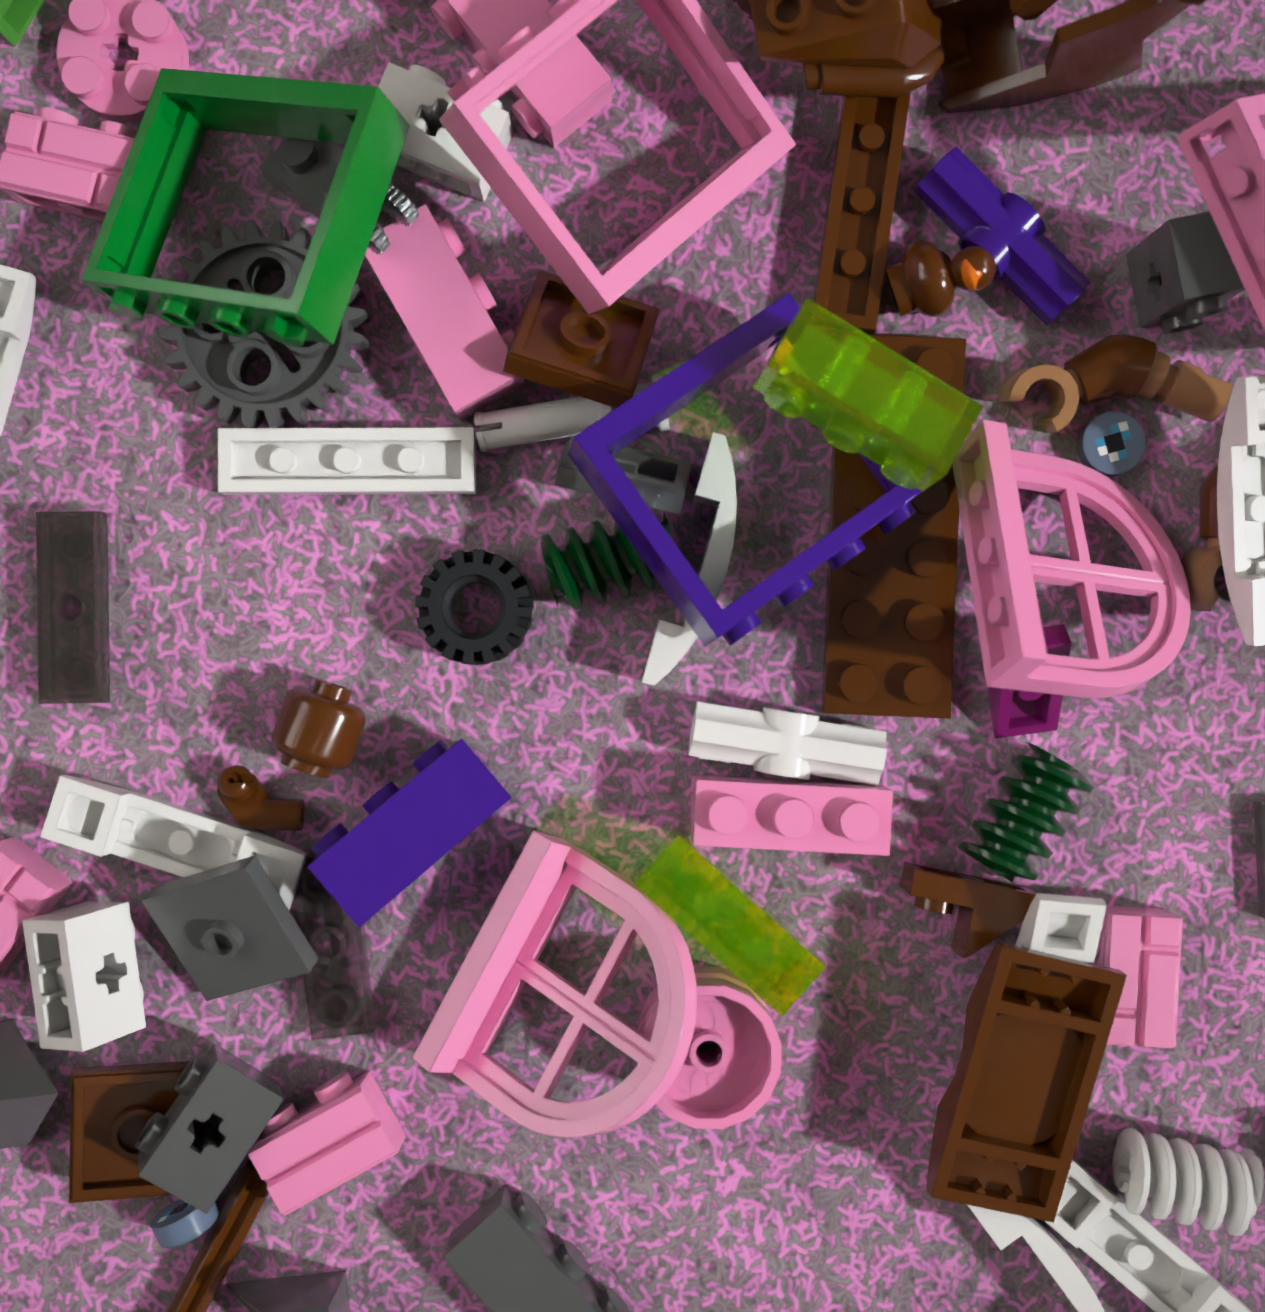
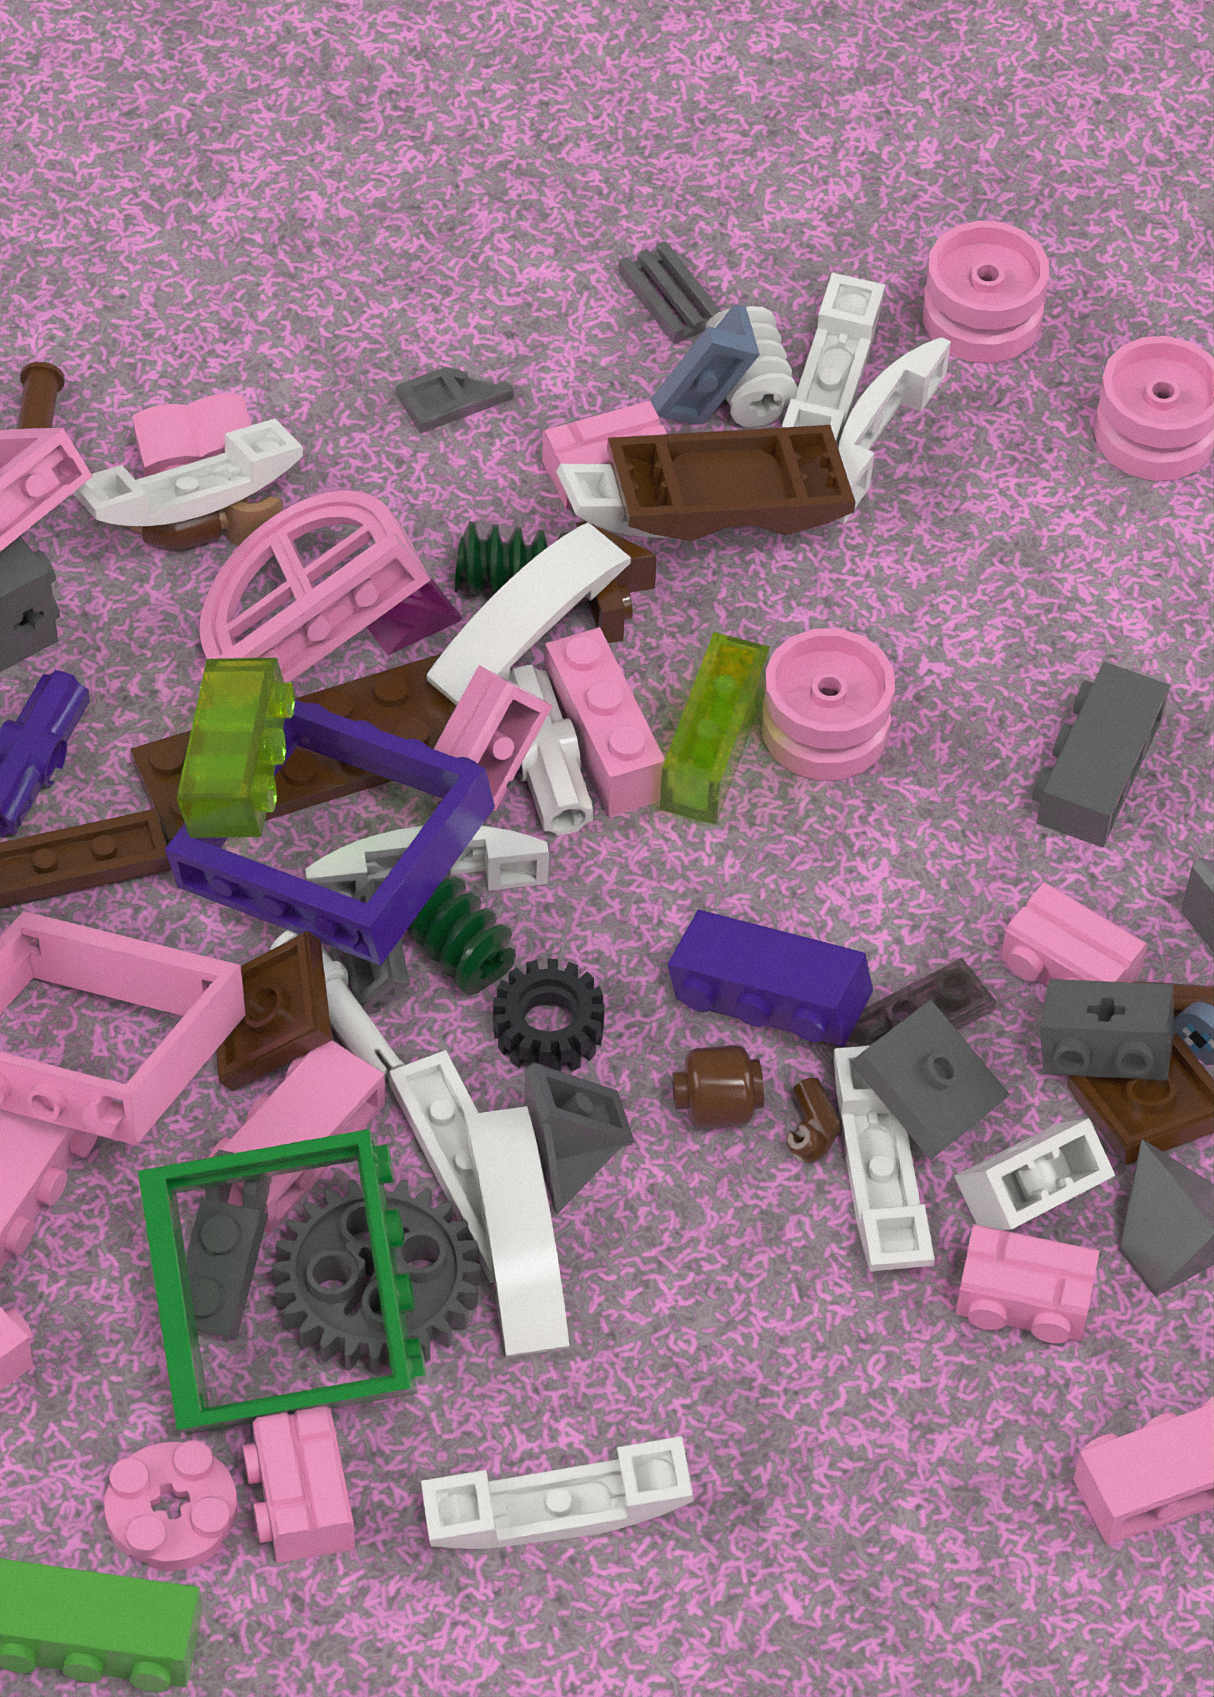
camera: 115 degrees left, 35 degrees down
(72, 565) = (747, 1316): clear smoke tile -> none
(255, 471) = (518, 1231): none -> white slope
(344, 578) = (574, 1127): none -> dark grey slope
(422, 100) = (115, 1229): white brick -> none
(507, 958) = (839, 875): bright pink window -> none
(802, 681) = (494, 727): none -> bright pink brick
(928, 278) = (98, 783): reddish brown animal -> none
(937, 792) = (528, 608): none -> white slope
(1111, 443) = (170, 623): sand blue tile -> none
(1123, 368) = (112, 643): medium nougat piece -> none
(1190, 1135) = (708, 370): none -> sand blue panel

